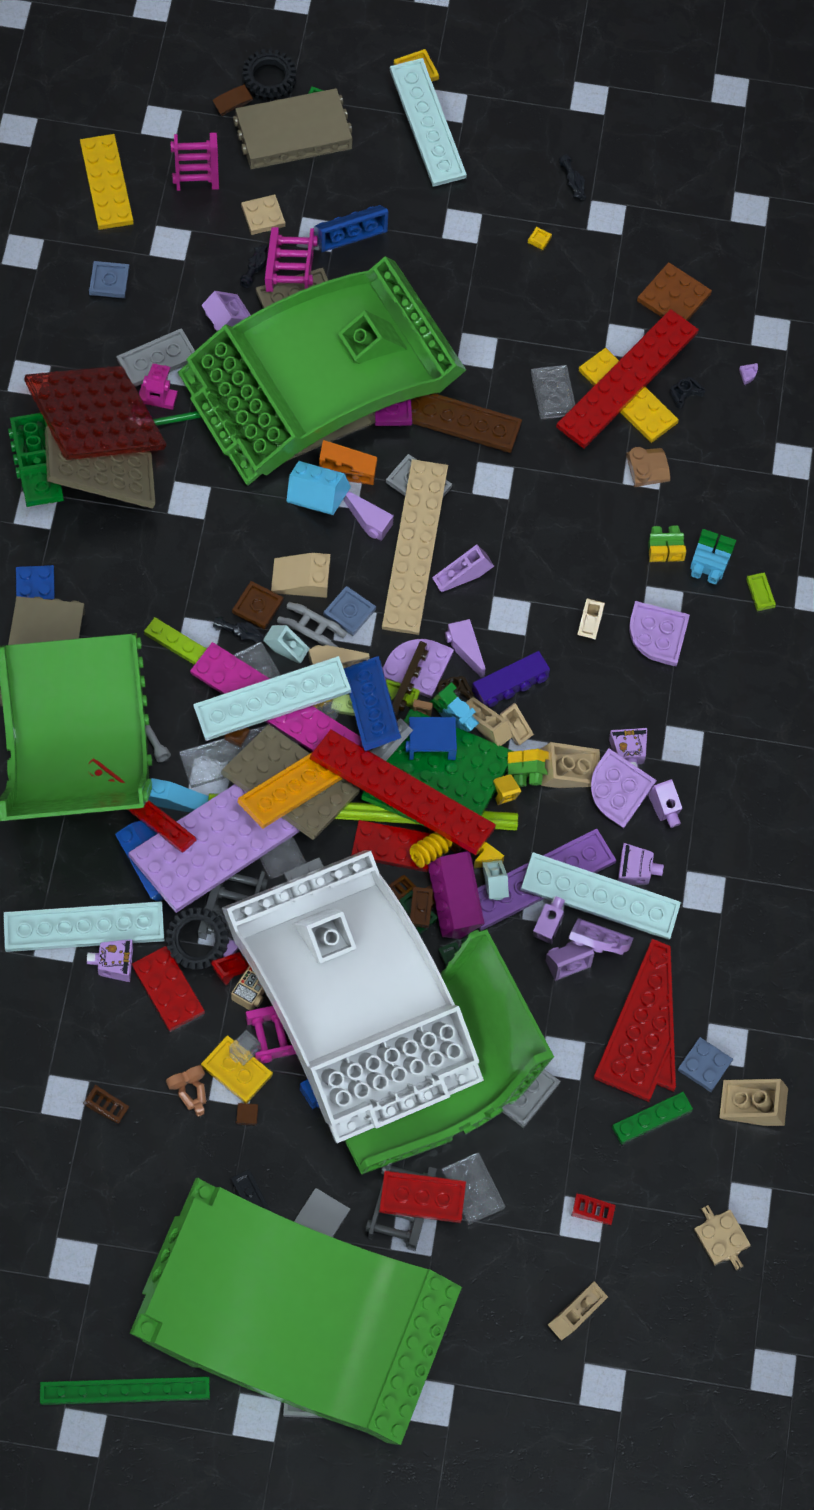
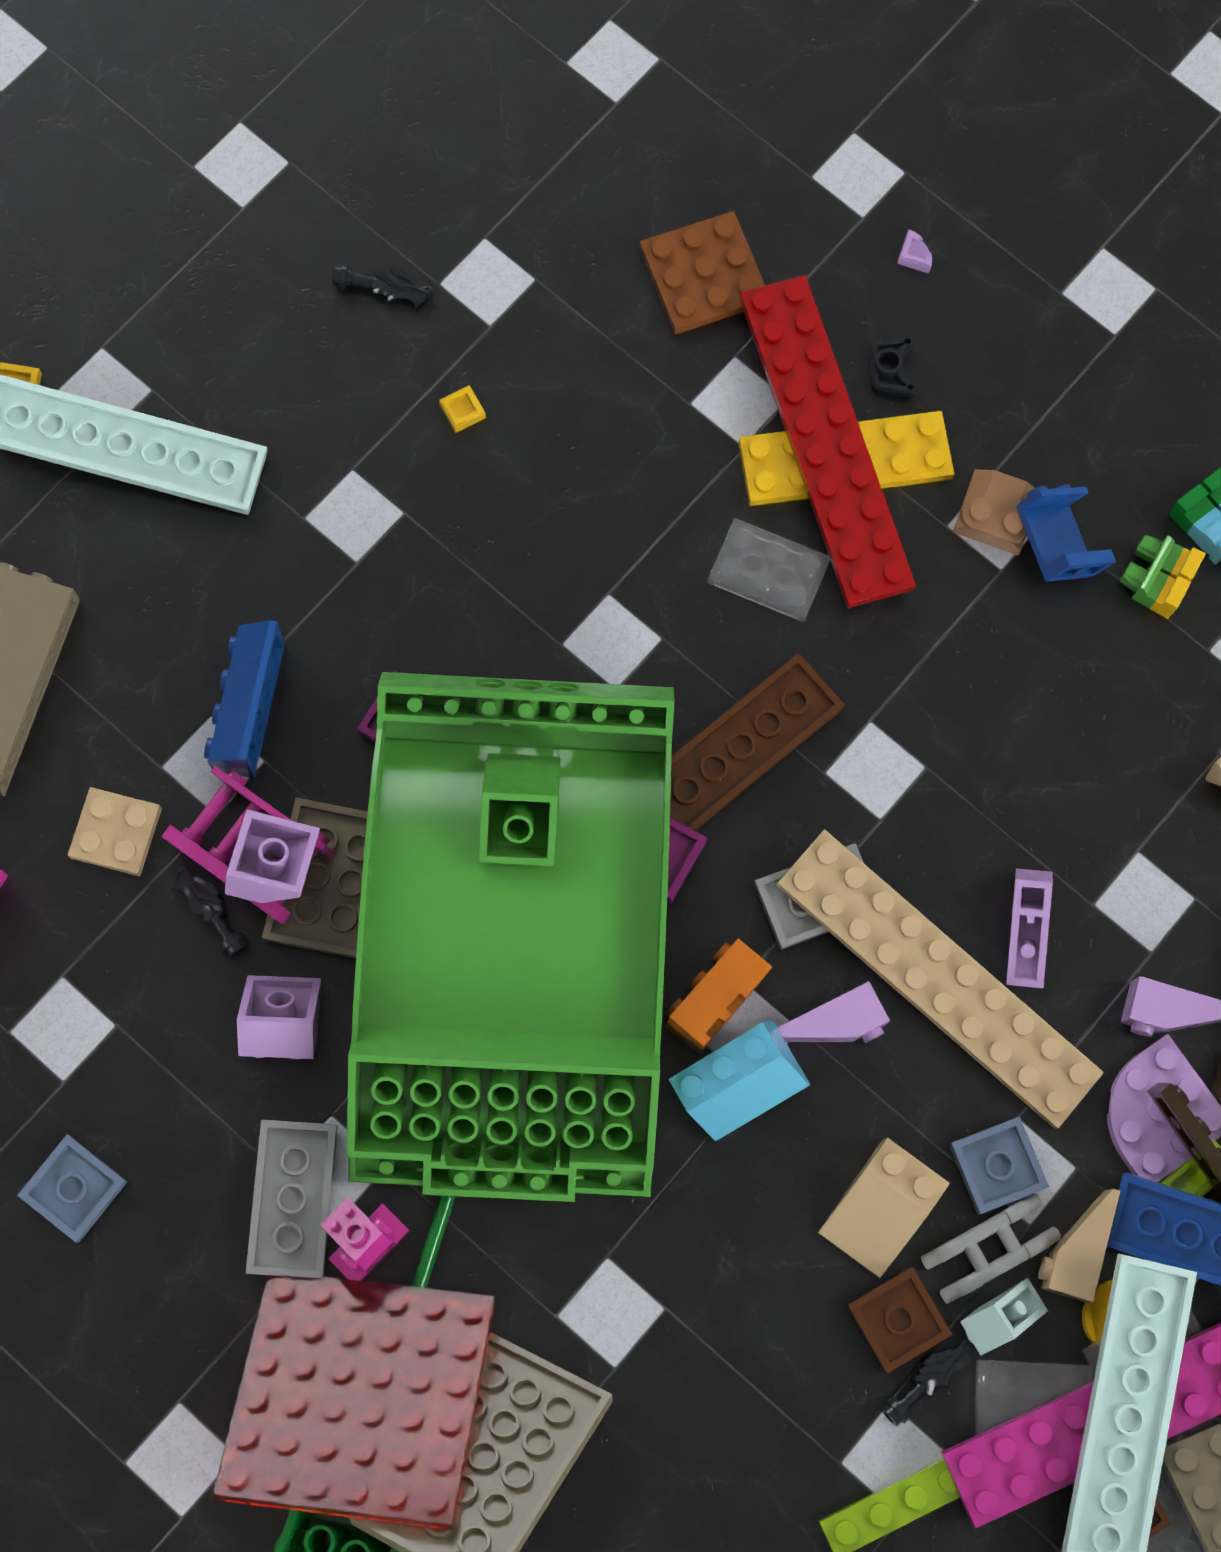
camera: 60 degrees left, 10 degrees up
(286, 259) = (270, 858): none -> lavender slope
(652, 491) = (1056, 535): none -> blue panel

